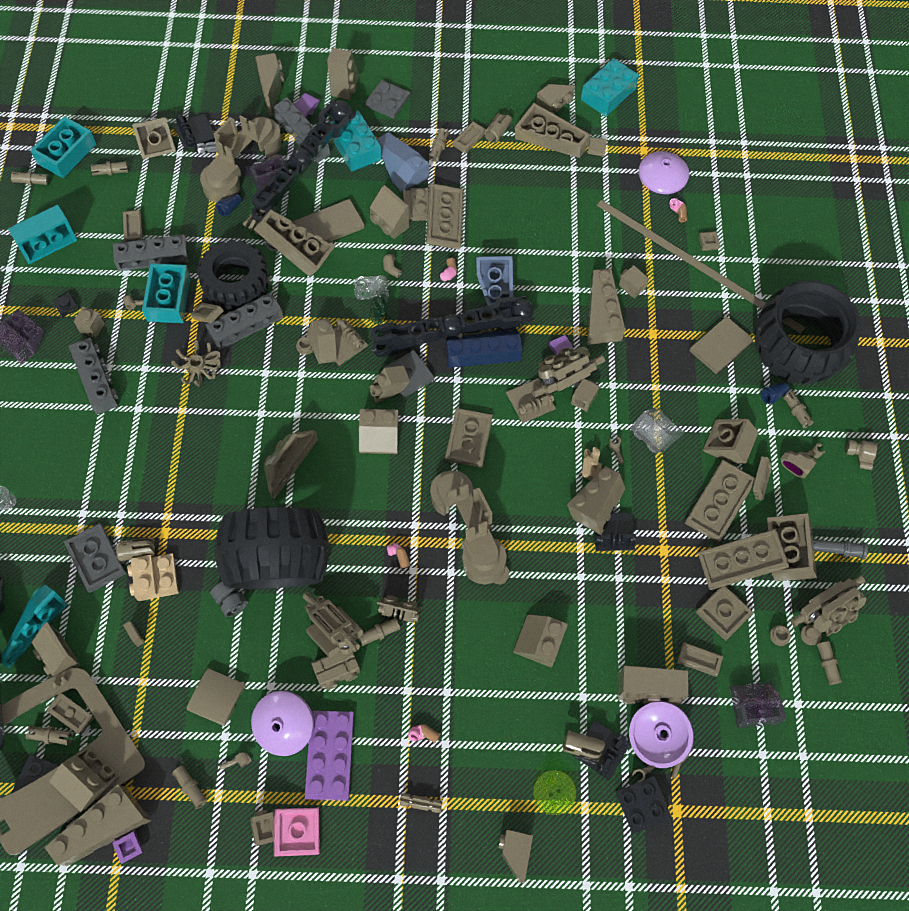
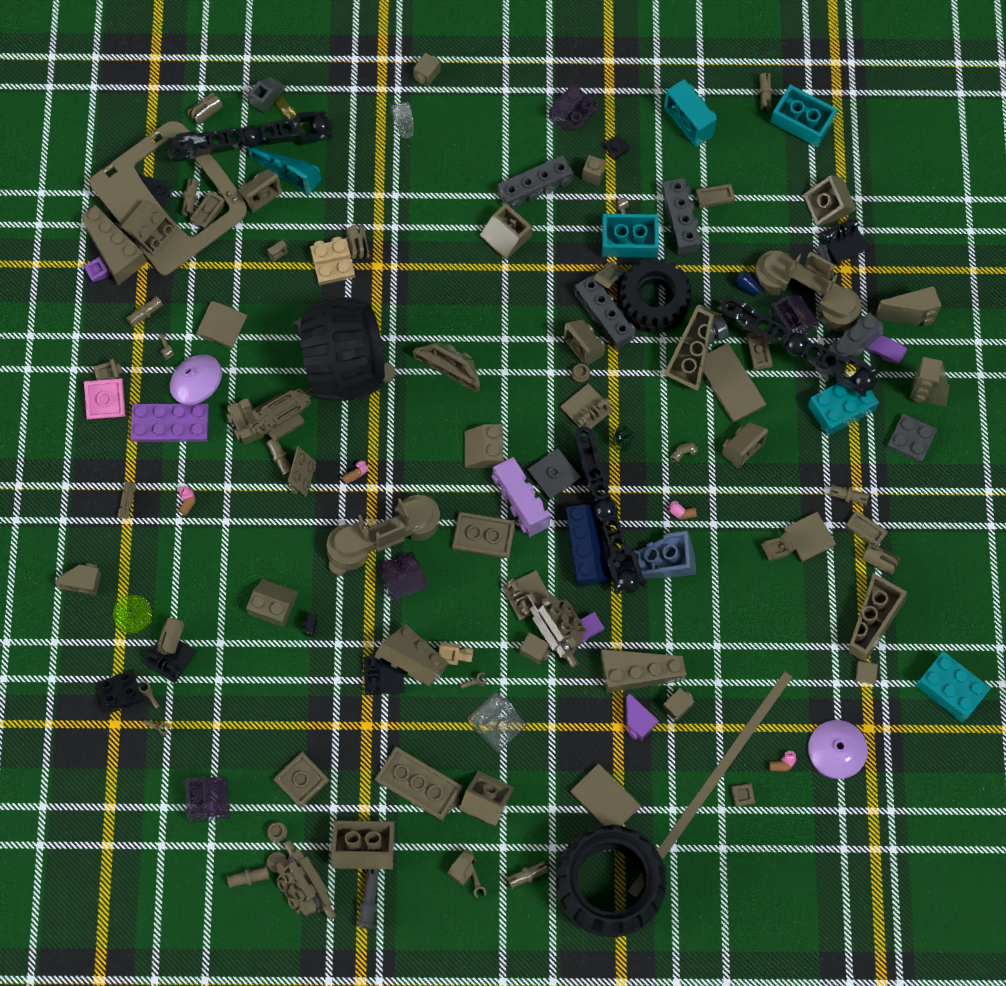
camera: 90 degrees right, 5 degrees up
(95, 557) = (350, 209): dark grey tile -> none
(109, 168) = (785, 163): dark tan pin -> none
(145, 402) = (506, 231): none -> dark tan slope
(198, 364) = (553, 273): dark tan animal -> none
(276, 339) = (583, 341): none -> dark tan slope
(297, 201) = (758, 351): none -> dark tan plate
(322, 340) = (580, 386): dark tan slope -> none
(371, 287) = (653, 434): clear piece -> none
(389, 383) = (535, 452): dark tan slope -> none
(402, 162) = (819, 457): sand blue wedge -> none
(418, 203) = (767, 474): dark tan plate -> none
(434, 398) = (521, 497): none -> lavender wedge
(444, 216) = (751, 503): dark tan tile -> none
(476, 177) = (810, 537): none -> dark tan tile
(486, 197) = (779, 547): none -> dark tan bracket
(513, 510) = (402, 576): none -> clear purple slope
(555, 96) = (931, 622): dark tan slope -> none
(565, 600) = (309, 624): none -> black plate
(647, 738) = (178, 705): lavender dish -> none
(648, 313) = (638, 719): none -> medium lavender slope
(652, 685) = (223, 698): dark tan brick -> none
(700, 659) = (254, 752): dark tan tile -> none
(743, 559) = (350, 795): dark tan tile -> none
(762, 478) = (443, 826): dark tan tile -> none
(774, 392) = (547, 850): dark blue cone -> none
(865, 450) = (479, 942): dark tan piece -> none

